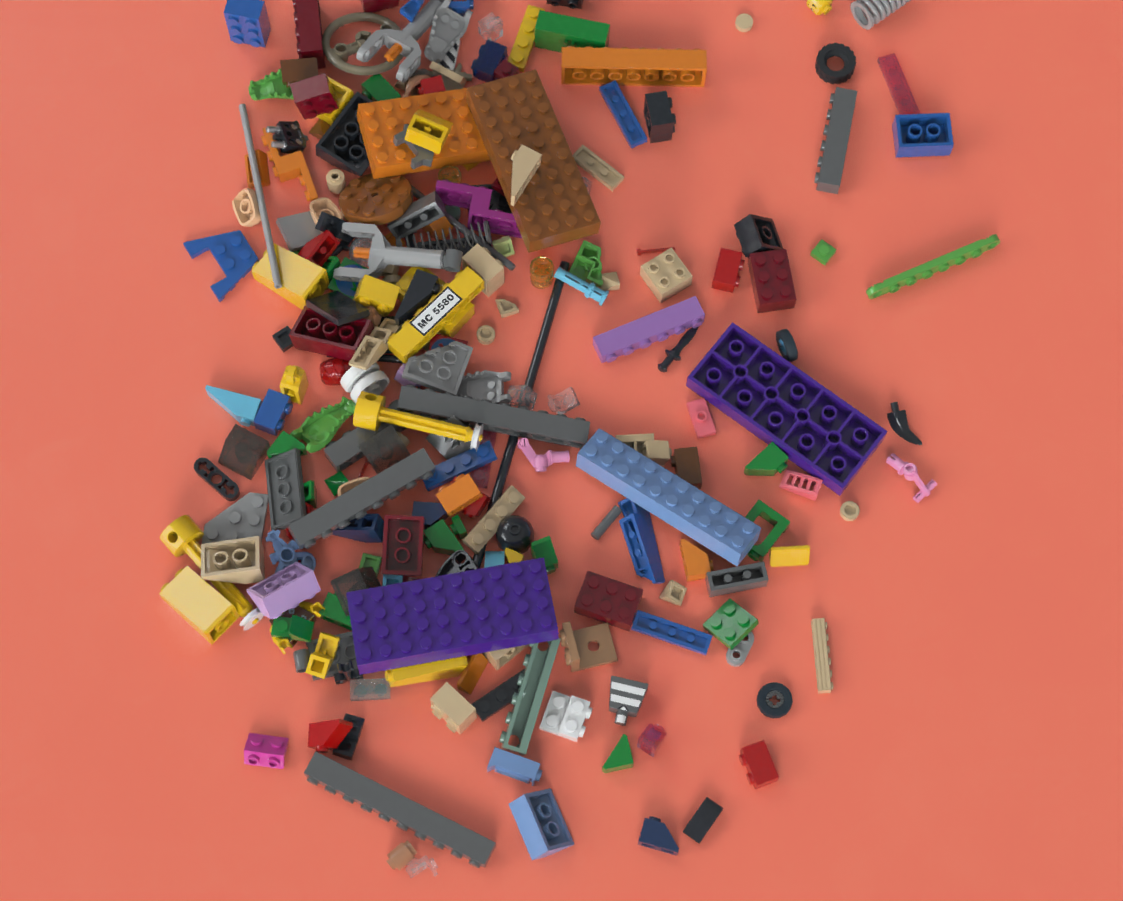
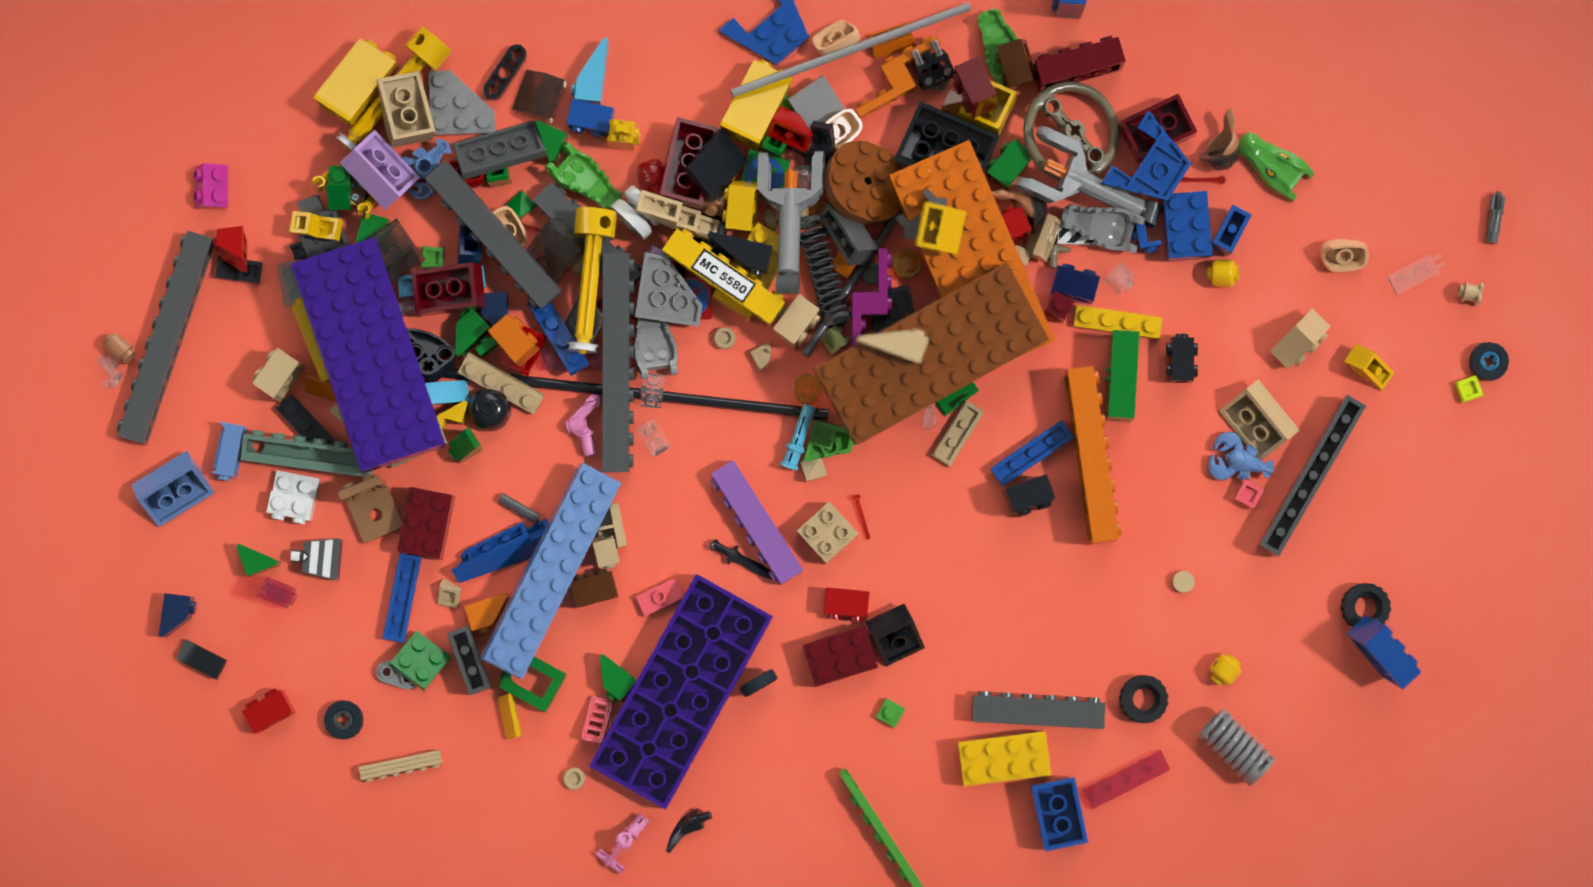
camera: 85 degrees right, 15 degrees up
(282, 339) = (684, 110): black tile -> none
(335, 181) = (882, 139): tan brick -> none
(872, 170) = (1004, 758): none -> yellow brick

